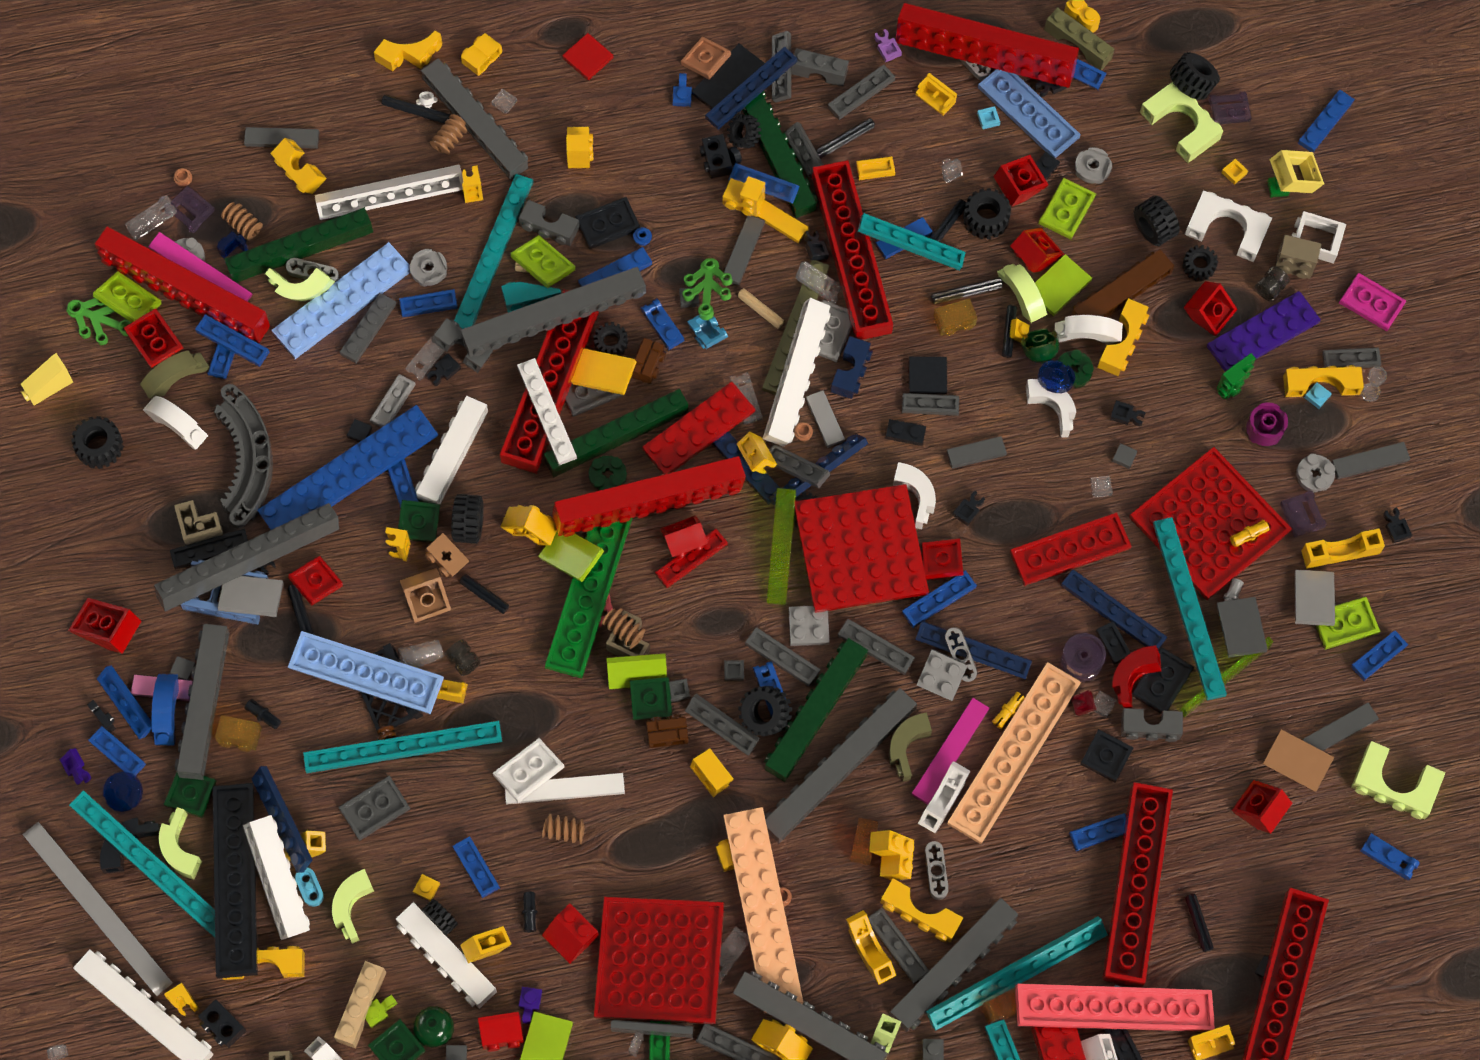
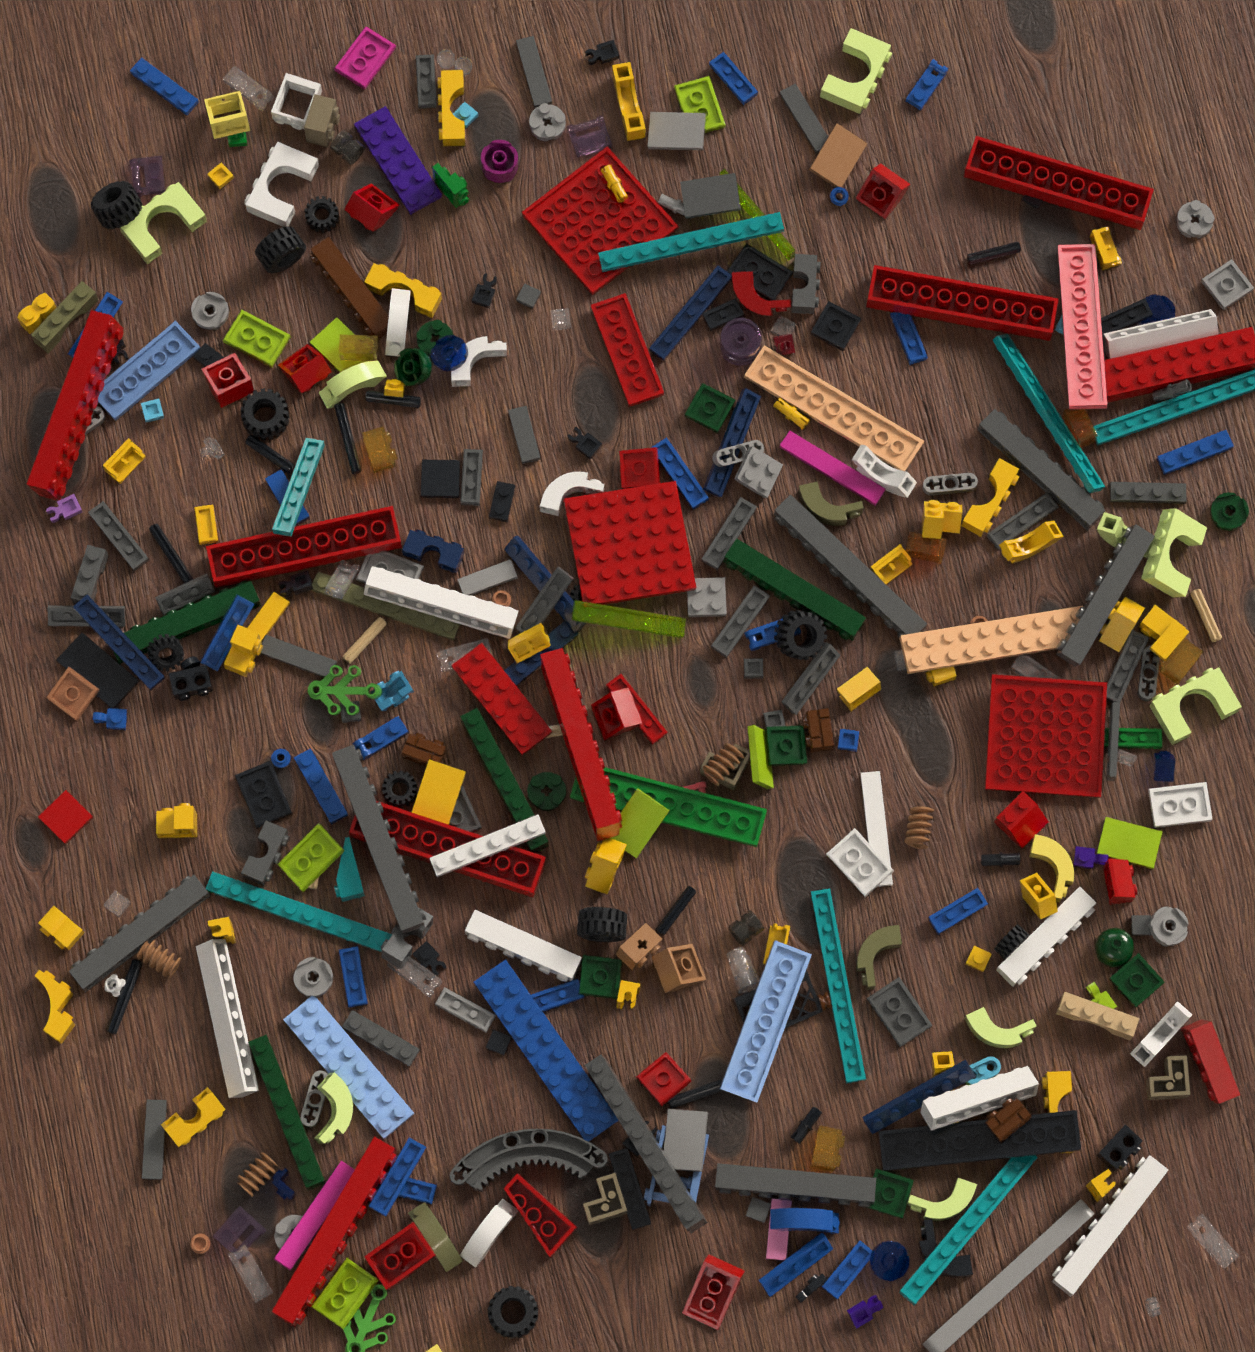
camera: 90 degrees left, 5 degrees up
(189, 465) = (543, 1218): none -> red wedge
(249, 902) = (1007, 1119): none -> reddish brown brick
(436, 777) = (880, 940): none -> olive arch
(524, 972) = (1054, 854): none -> light yellow arch
(657, 761) = (848, 740): none -> blue plate
(844, 806) = (892, 564): none -> yellow hinge
(1011, 629) = (710, 408): none -> dark green plate
(1058, 294) = (358, 347): none -> clear yellow brick
(1253, 756) = (833, 196): none -> blue plate
(1330, 194) = (248, 87): none -> clear plate

